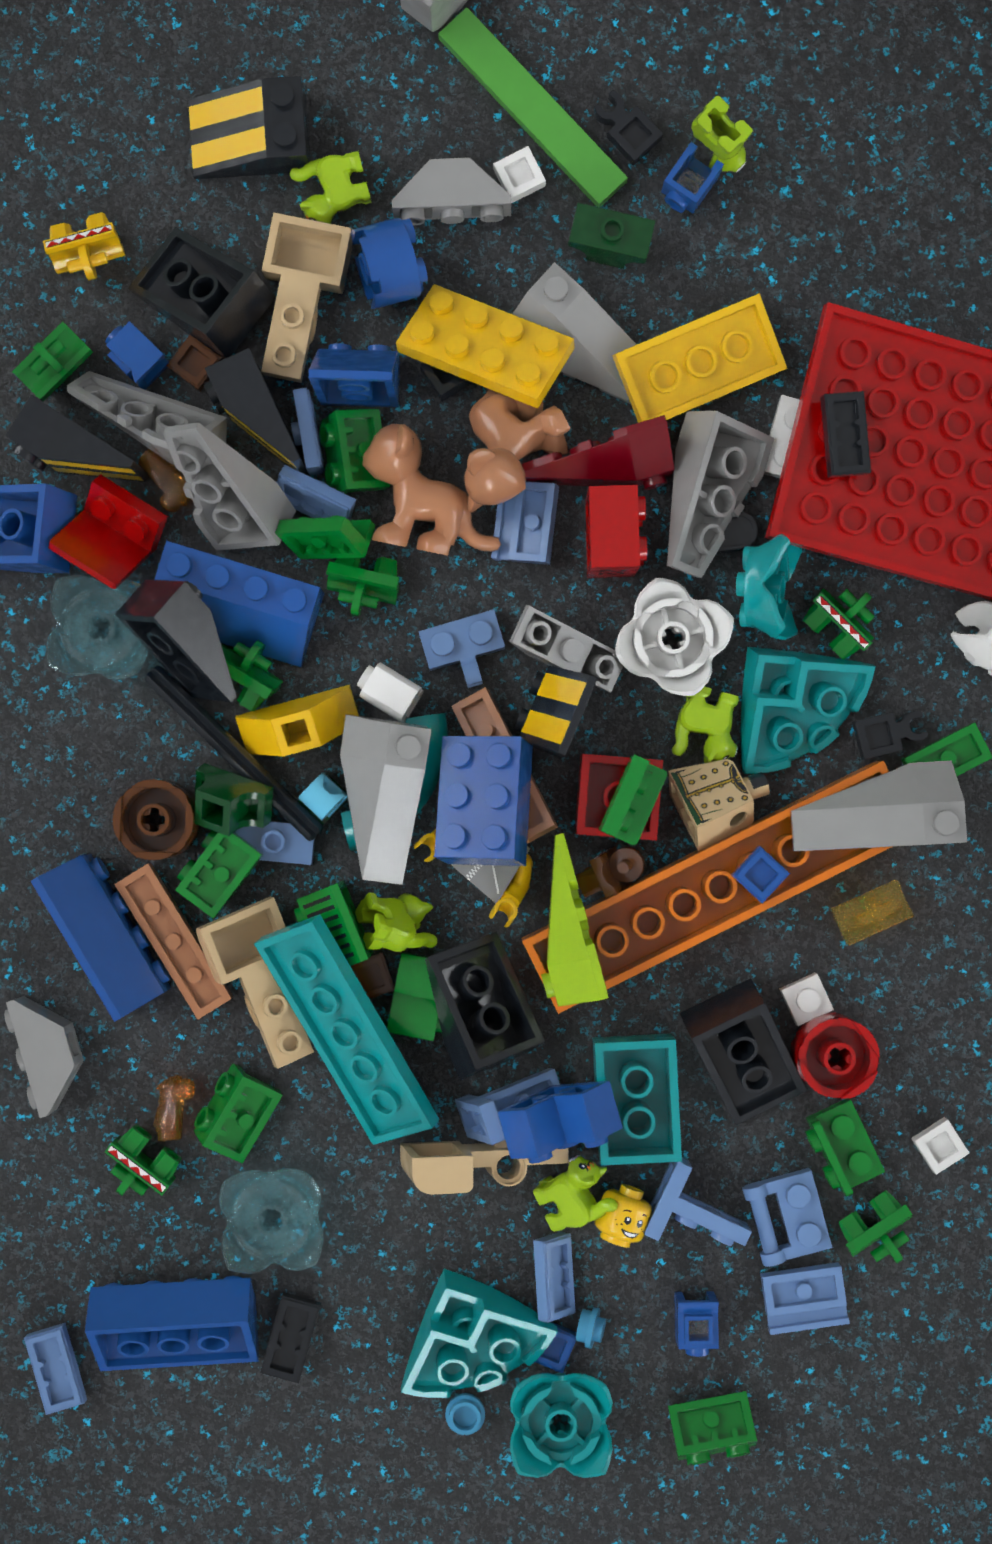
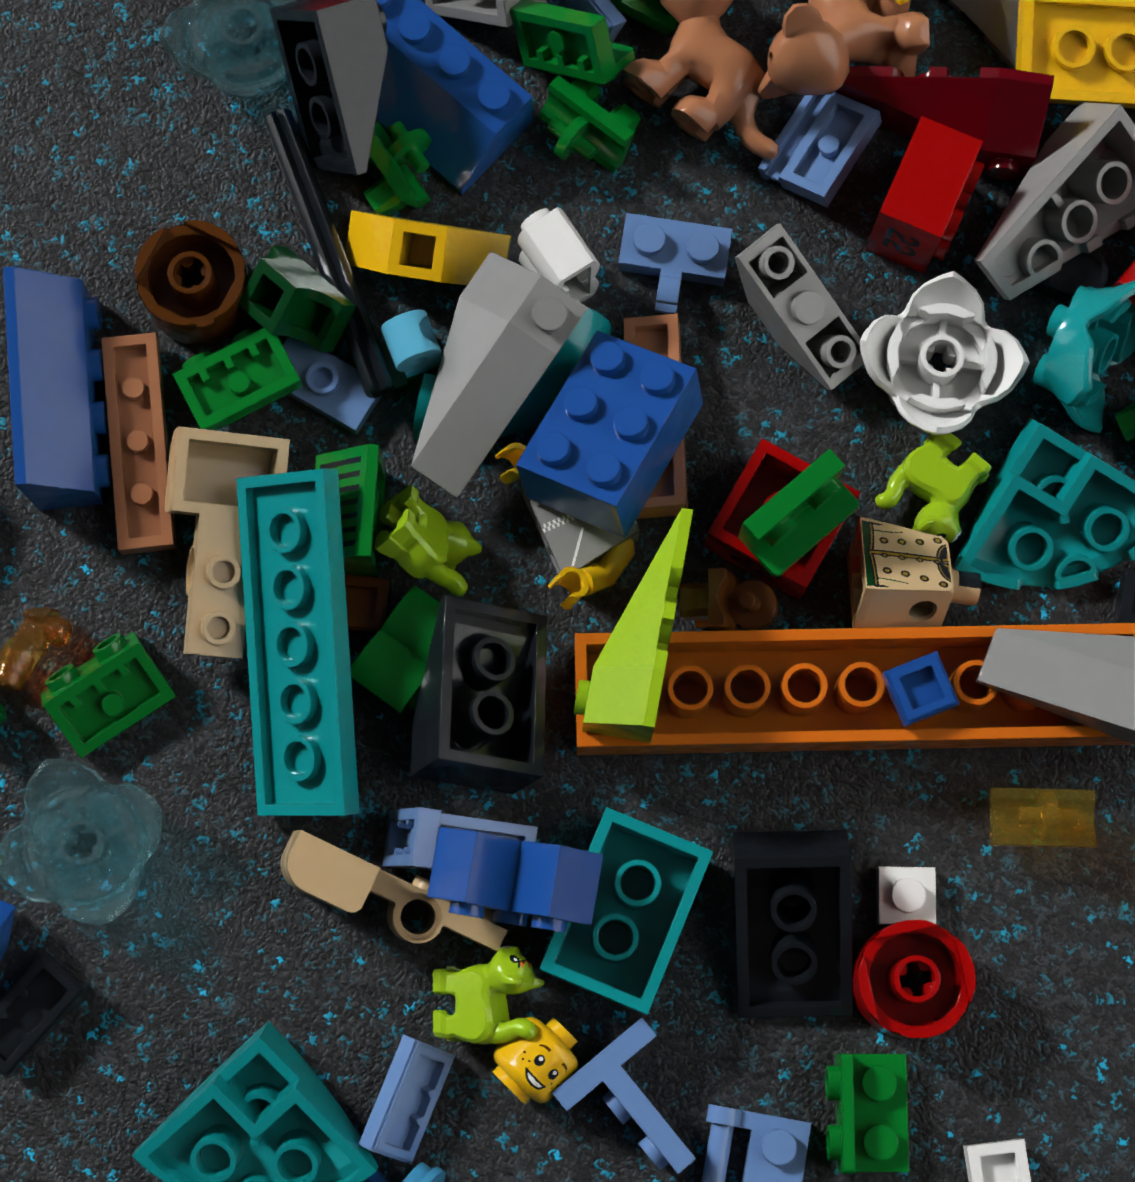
camera: 25 degrees right, 10 degrees down
(556, 709) = (757, 376): slope -> none

